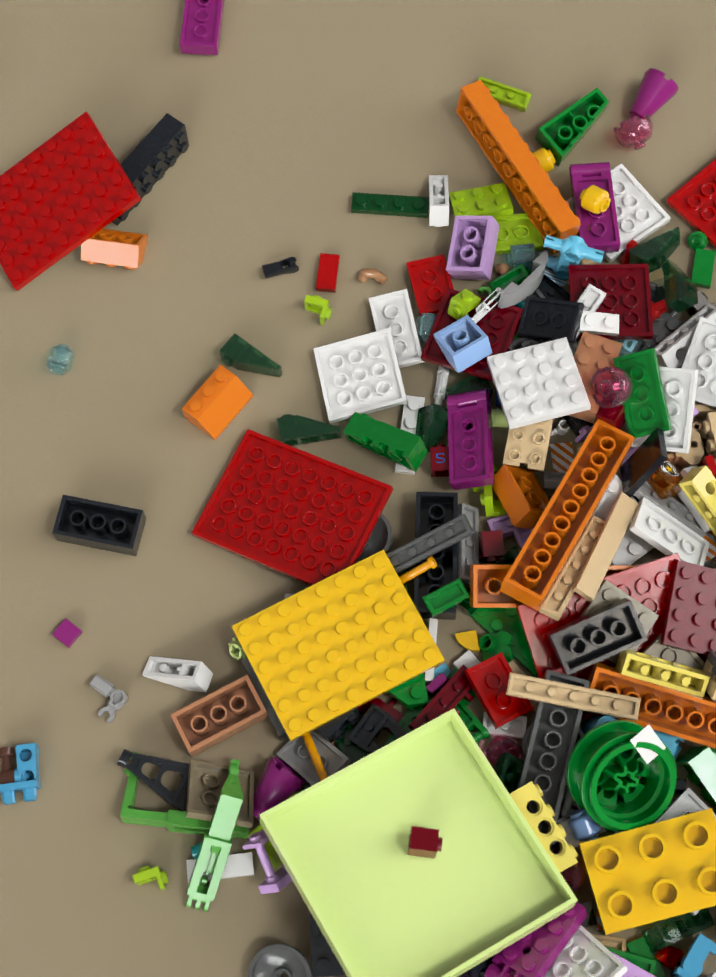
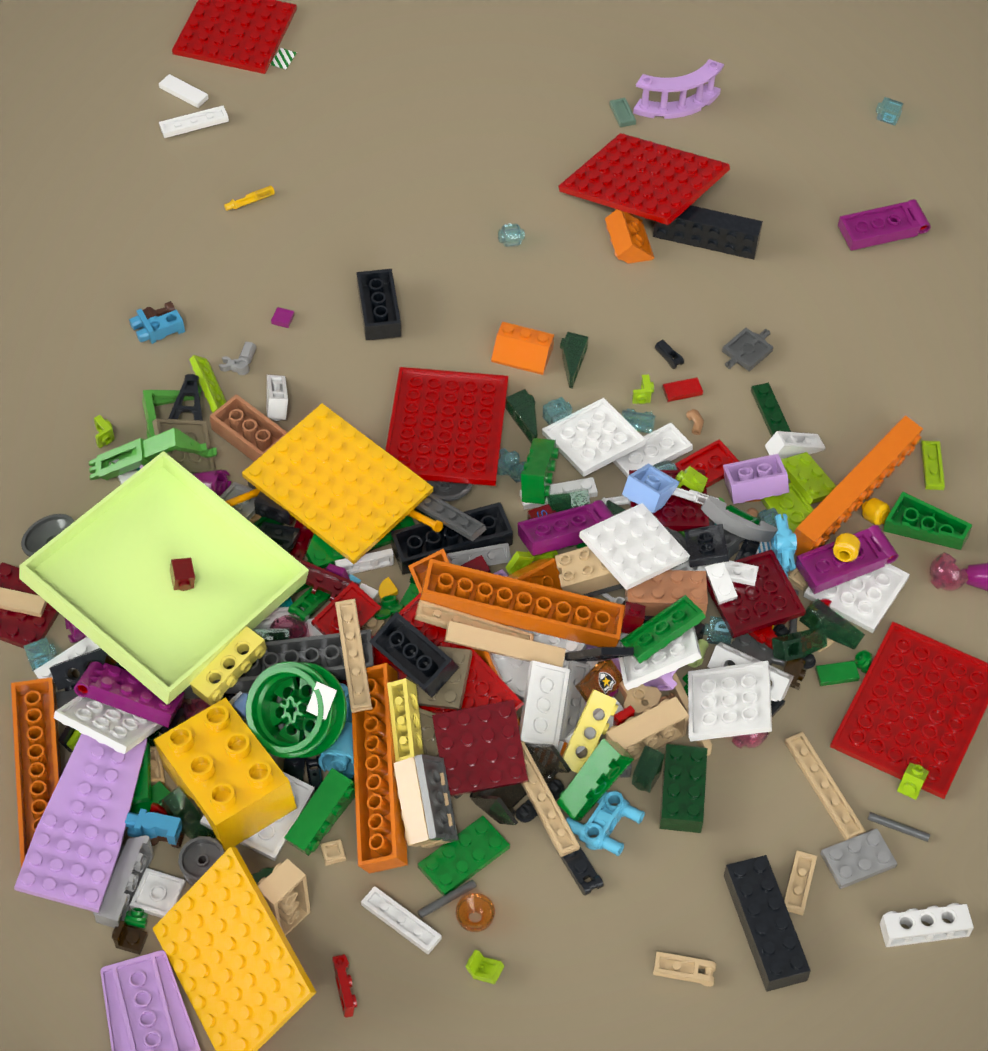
camera: 65 degrees right, 15 degrees down
(134, 741) = (208, 382): none -> lime plate
(304, 194) = (747, 349): none -> dark grey plate
(312, 399) = (556, 410): none -> clear light blue brick
(356, 325) = (640, 421): none -> clear light blue hips
(368, 463) = (510, 465): none -> clear light blue hips
(445, 597) = (410, 547): green tile -> none
(611, 387) = (654, 599): clear pink cylinder -> none

